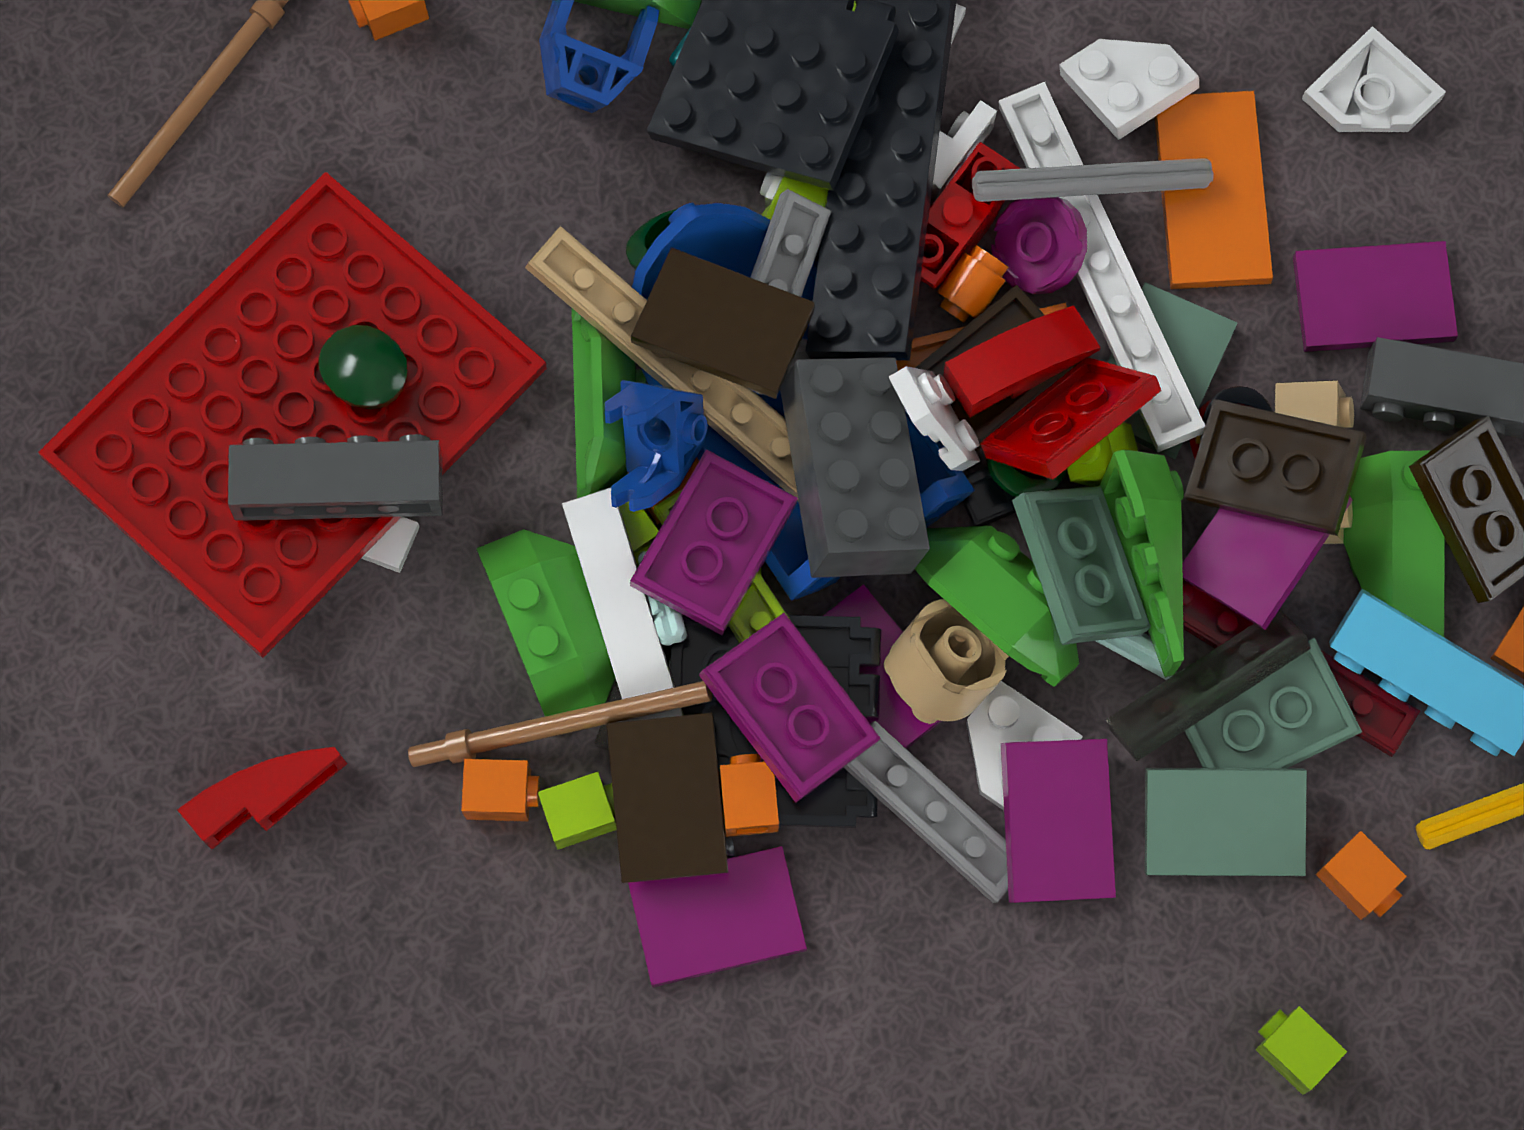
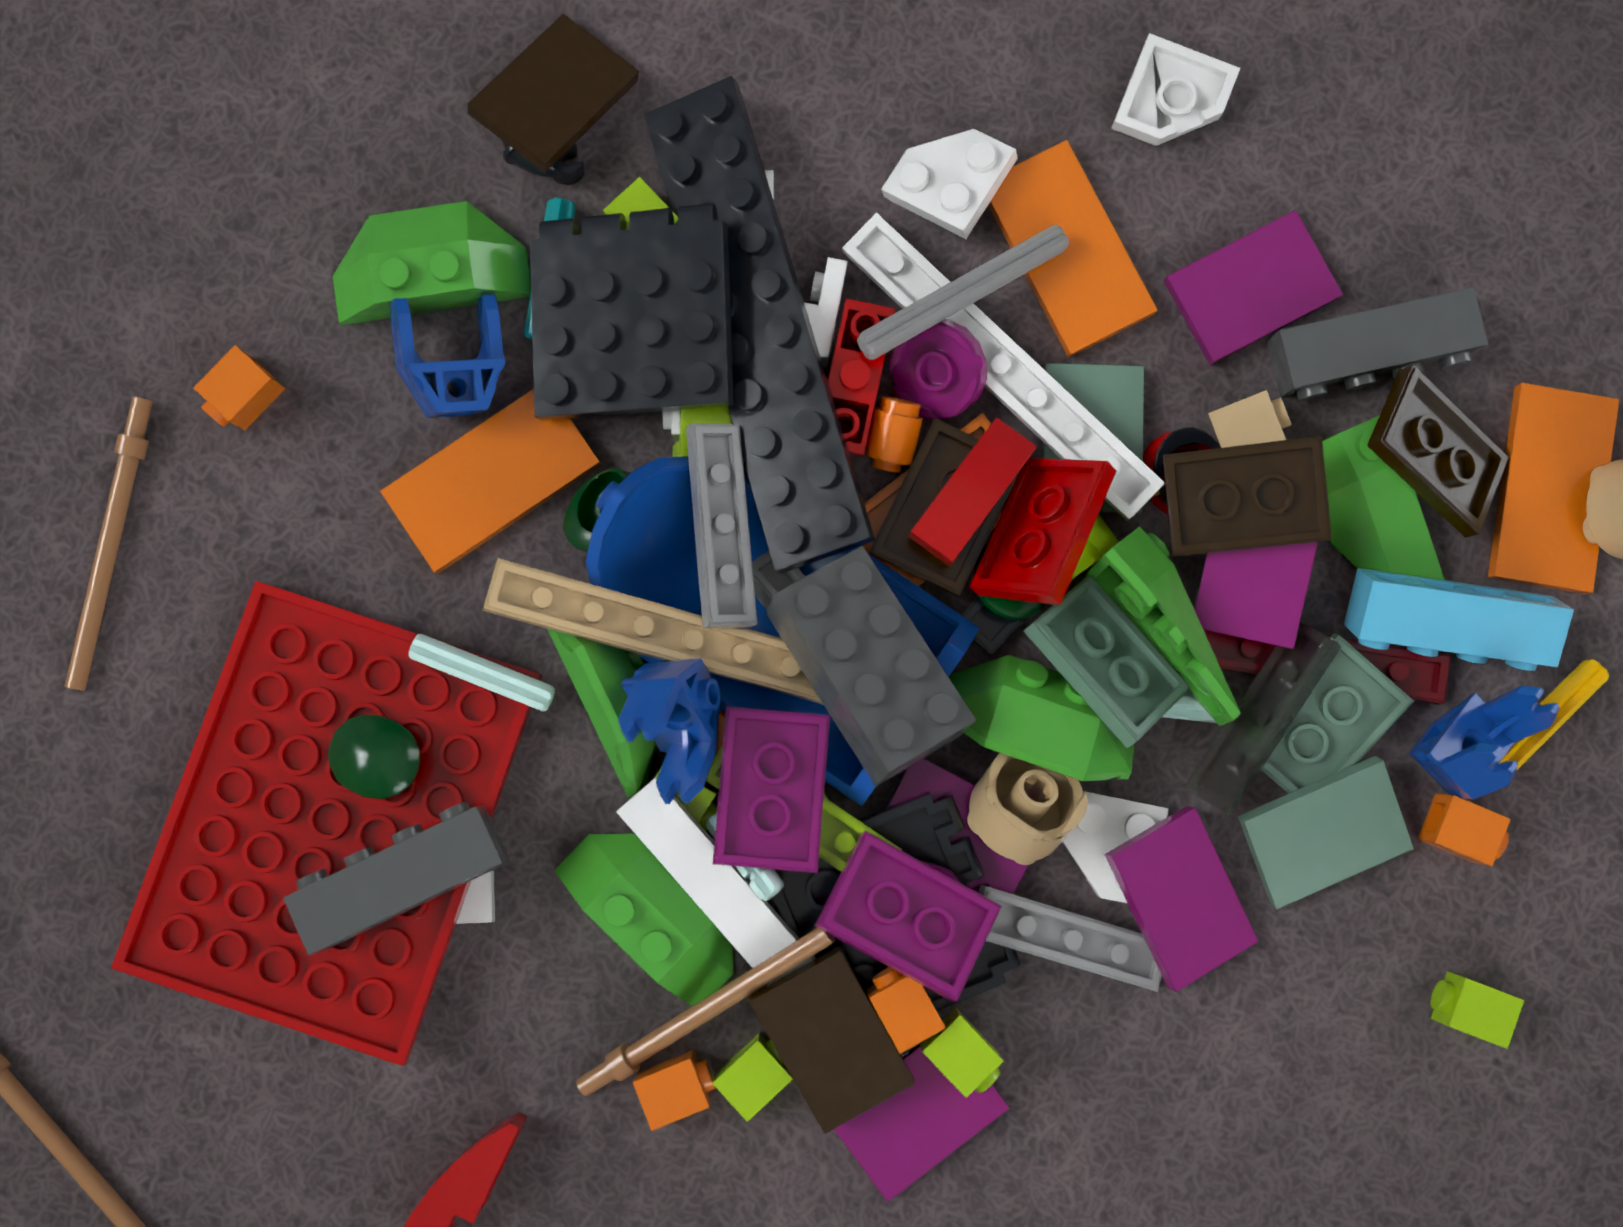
camera: 25 degrees left, 10 degrees up
(494, 335) = (481, 672): none -> light aqua axle
(577, 175) = (488, 481): none -> orange tile
(723, 322) = (690, 583): dark brown tile -> none
(784, 868) = (963, 1055): none -> lime brick
(929, 408) = (918, 584): white plate -> none
(1409, 789) = (1470, 740): none -> blue piece

